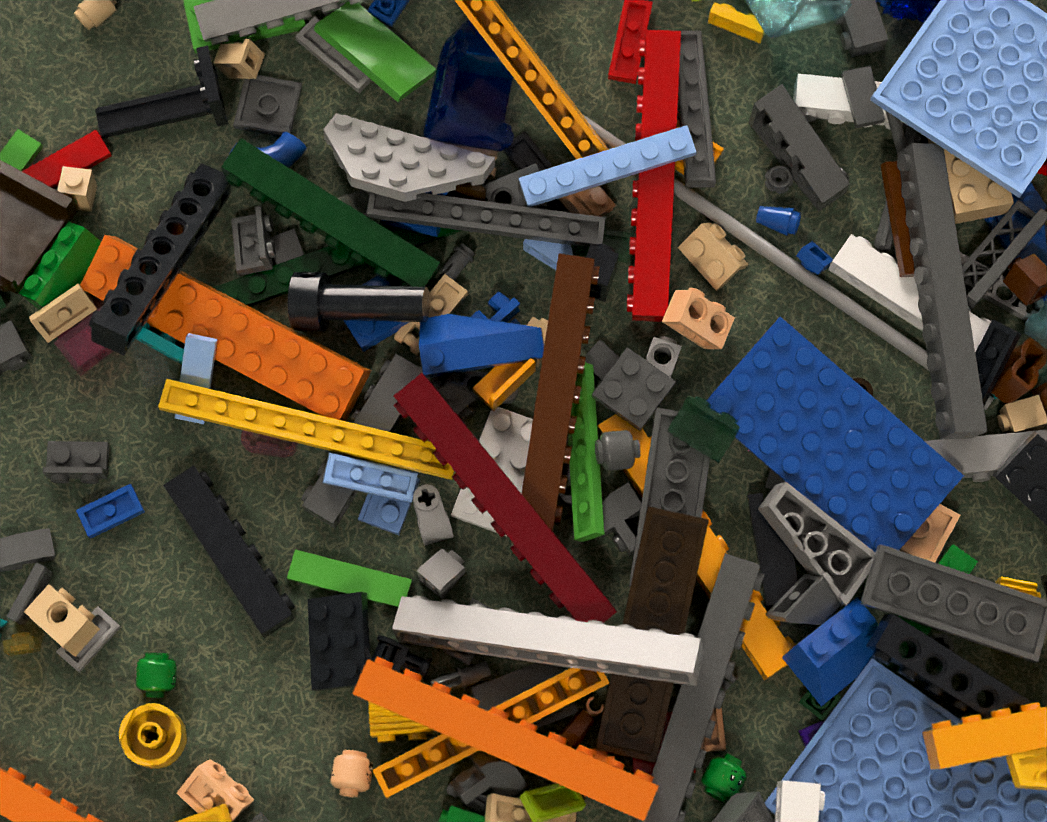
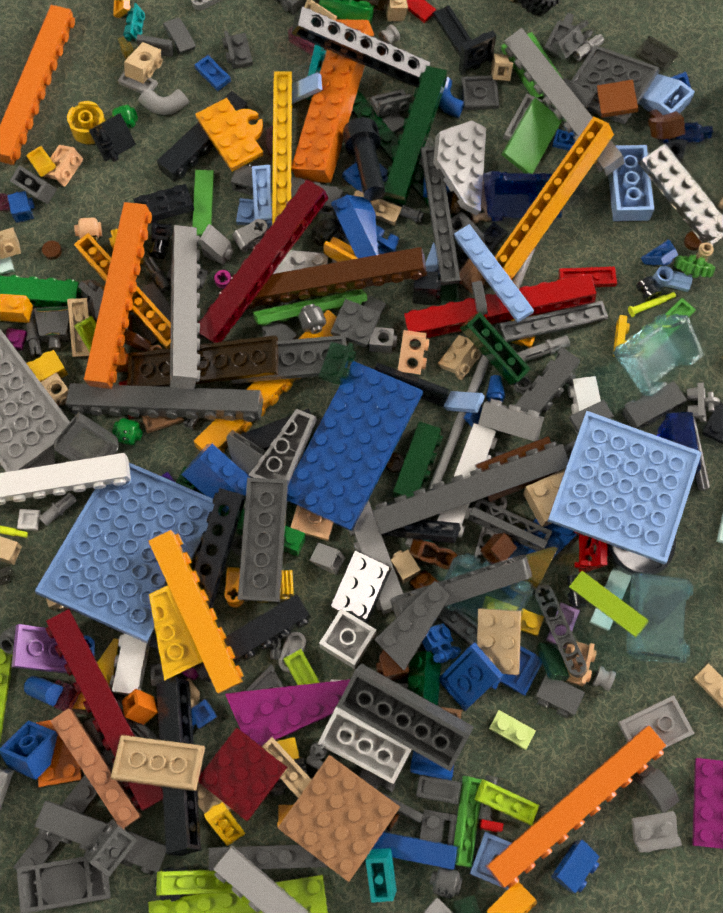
camera: 75 degrees right, 5 degrees down
(125, 214) = (389, 35): none -> light grey wheel
(150, 605) = (163, 105): none -> light grey cylinder
(196, 700) = (112, 137): none -> black hinge
(246, 501) = (232, 133): none -> light orange plate
(497, 585) = (219, 274): none -> dark pink bush
(646, 196) = (479, 297): none -> dark grey beam
(725, 198) = (495, 348): none -> dark green brick
(729, 127) = (548, 347): none -> light grey pin
(744, 336) = (431, 391): none -> black tile
(792, 267) = (464, 401): none -> light blue tile
(843, 207) = (511, 420): none -> light grey brick
(870, 359) = (418, 459): none -> dark green brick
(987, 524) = (327, 558): none -> light grey brick
(1000, 665) = (232, 587): none -> light orange piece

